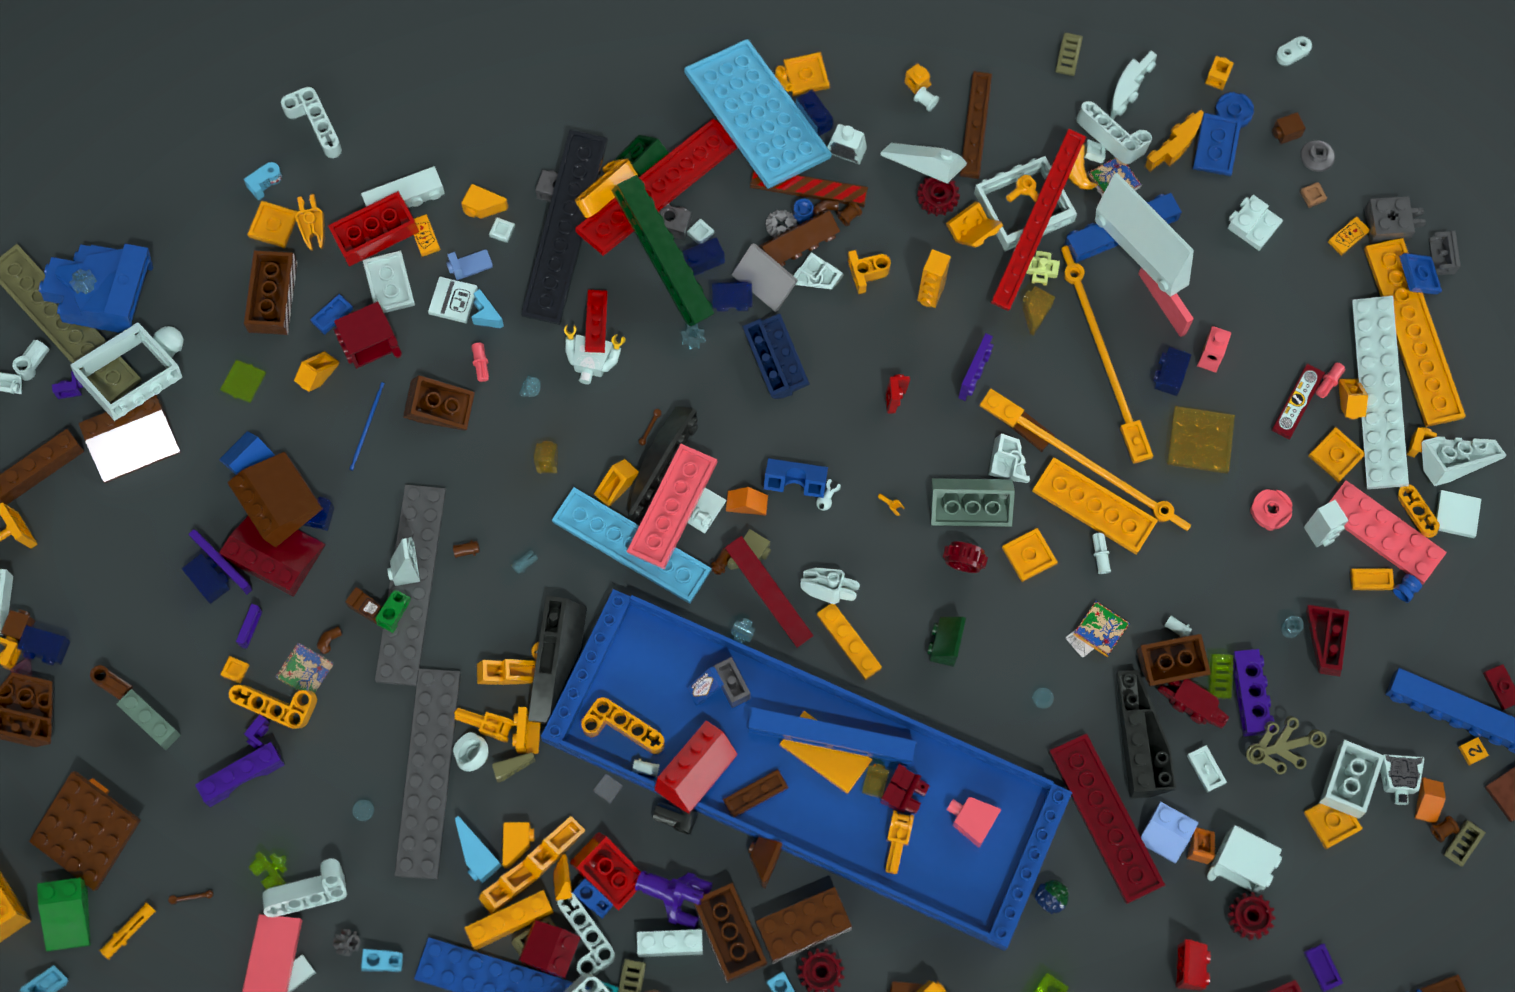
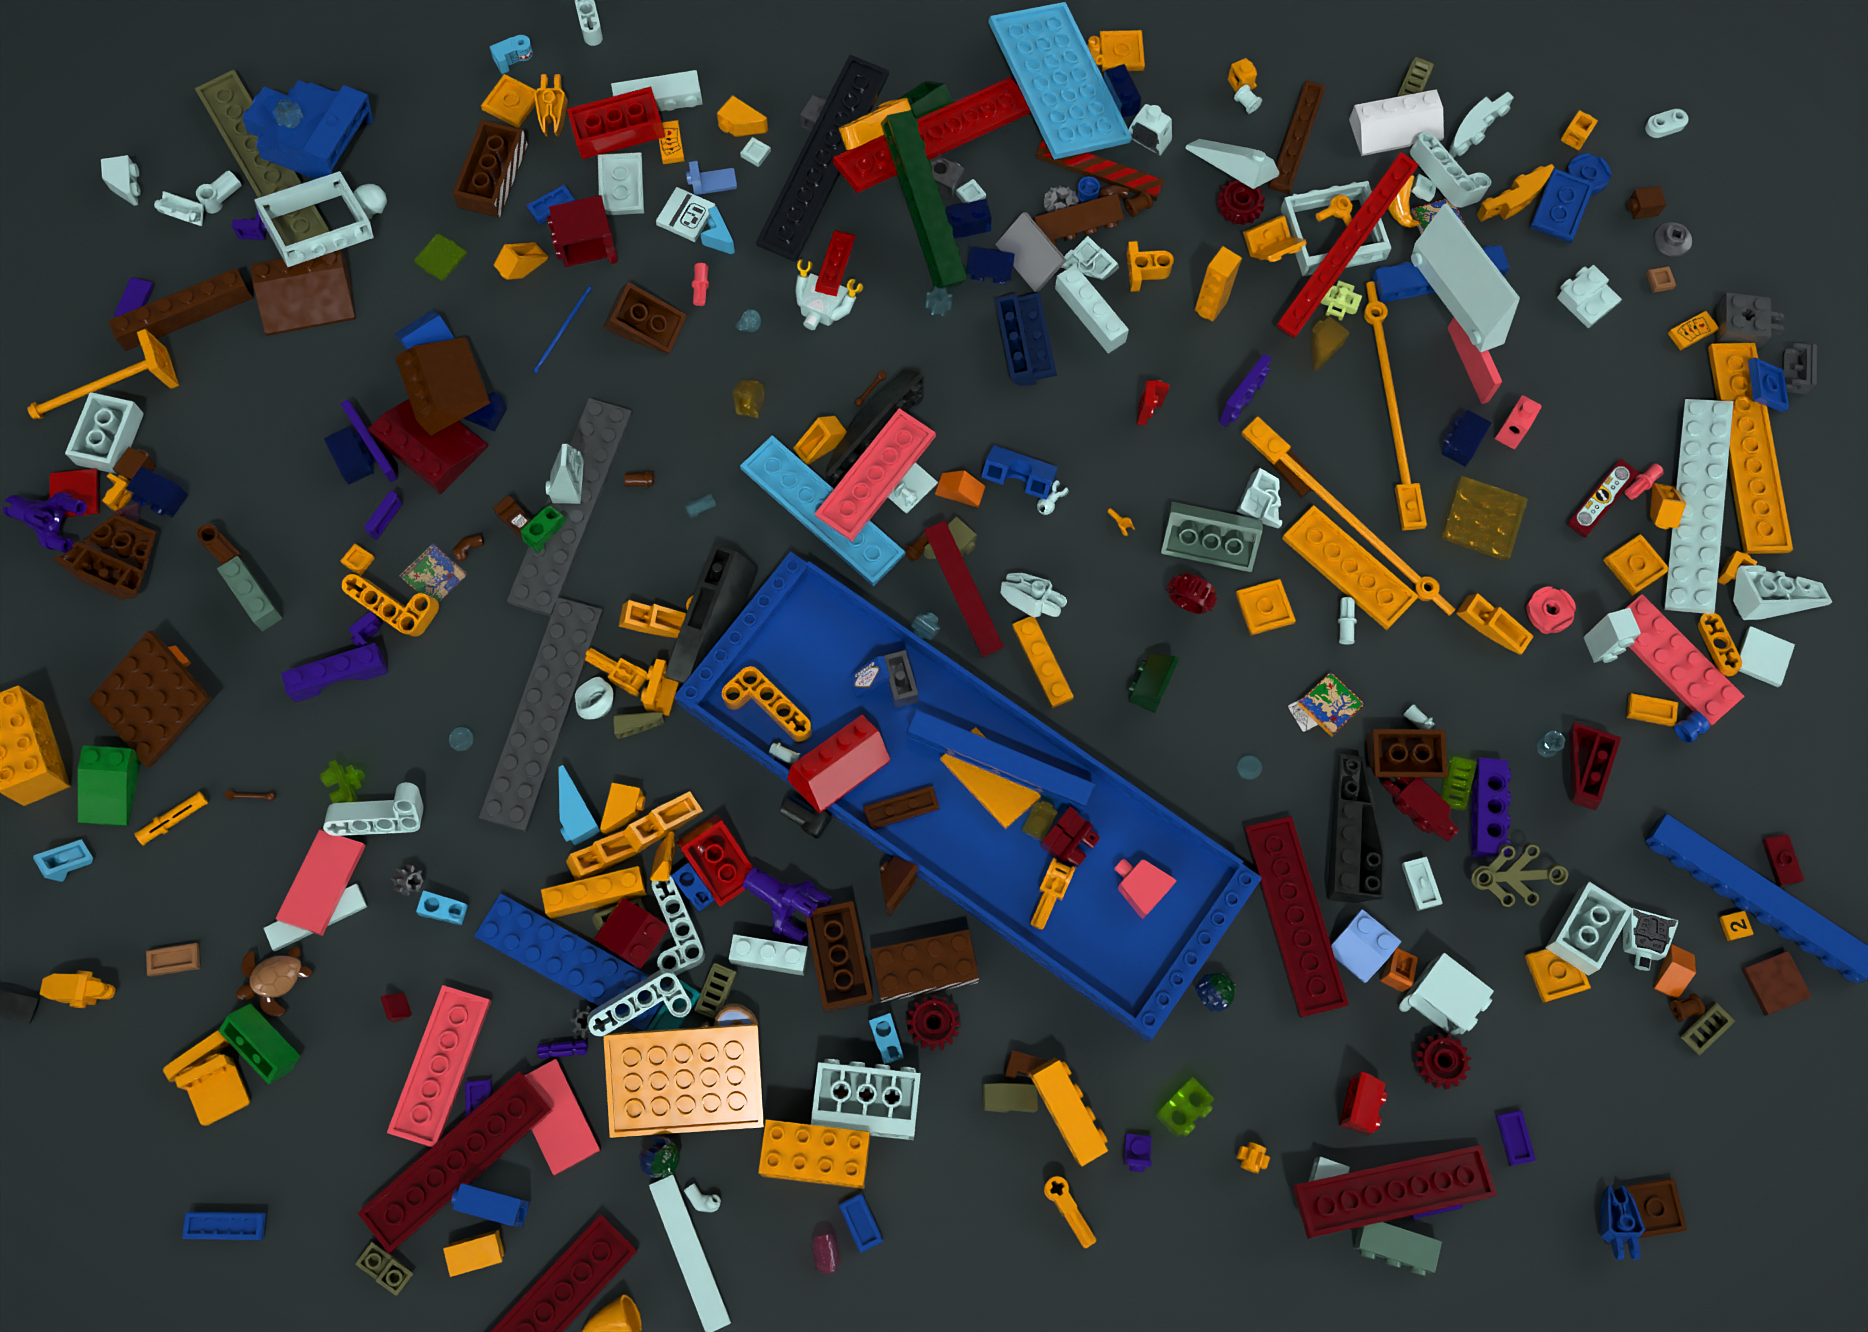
camera: 10 degrees right, 0 degrees up
(608, 788) = (737, 769): clear tile -> none
(827, 318) = (1091, 308): none -> light aqua brick
(1060, 95) = (1396, 121): none -> white slope
(1226, 531) = (1494, 623): none -> light orange slope

